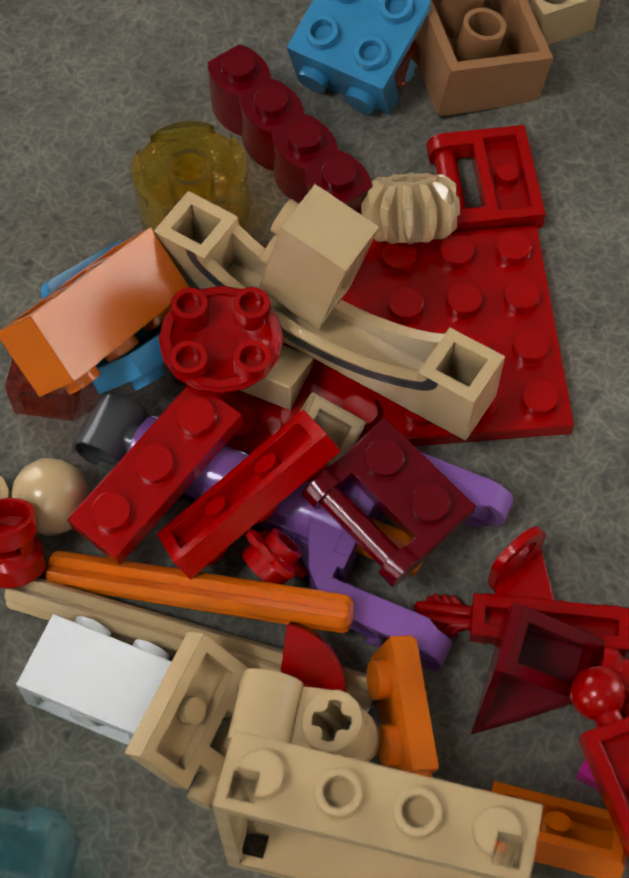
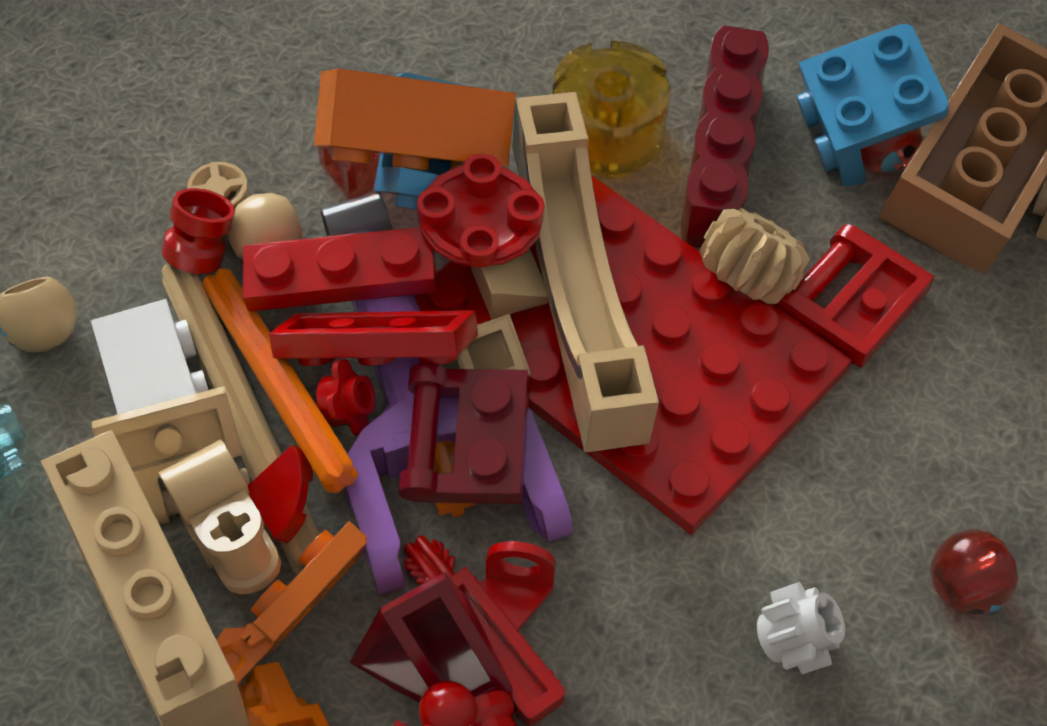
camera: 45 degrees right, 5 degrees down
(315, 254) = (599, 206): tan piece -> none

